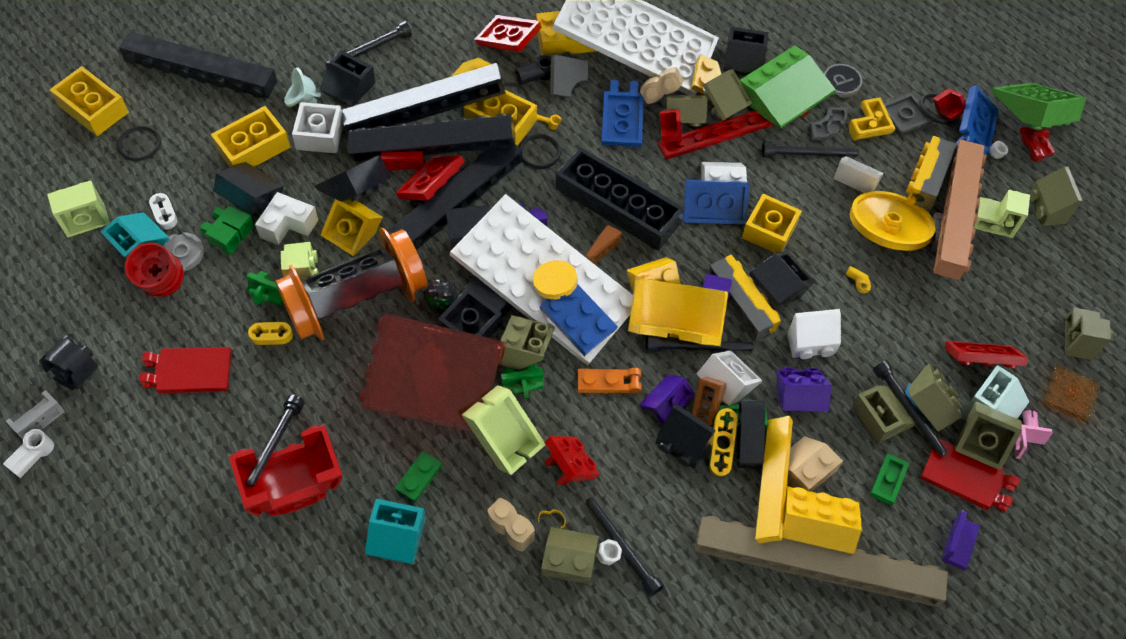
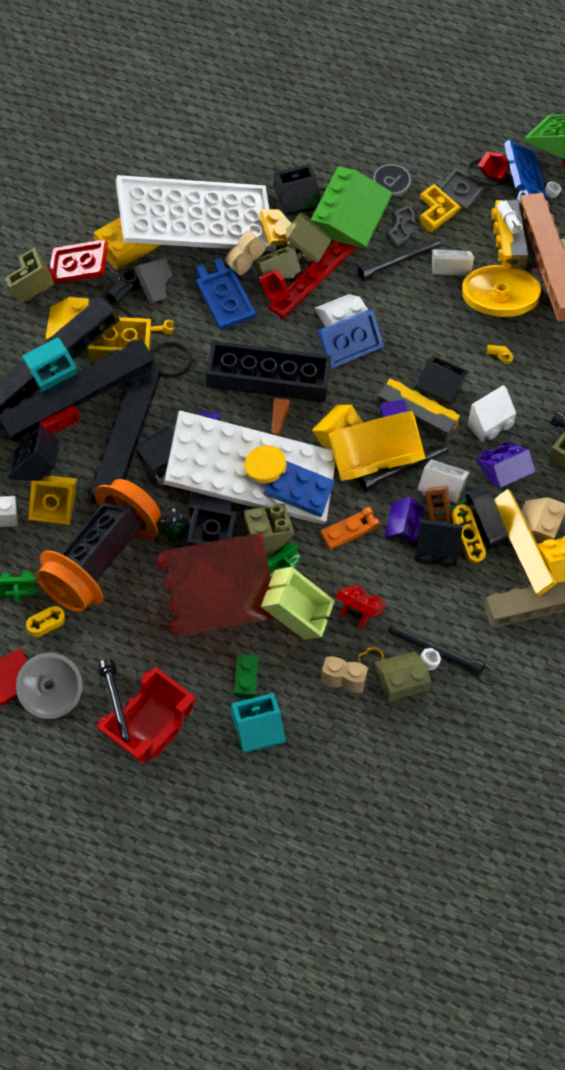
camera: 30 degrees left, 0 degrees up
(212, 394) = (60, 697): none -> light grey dish
(302, 259) = (28, 549): yellowish green brick -> none
(413, 103) = (50, 364): none -> teal slope
(430, 177) = (96, 425): red plate -> none
(459, 29) = (31, 278): none -> olive brick
(771, 224) = (407, 337): yellow brick -> none
(937, 154) = (509, 217): none -> white axle

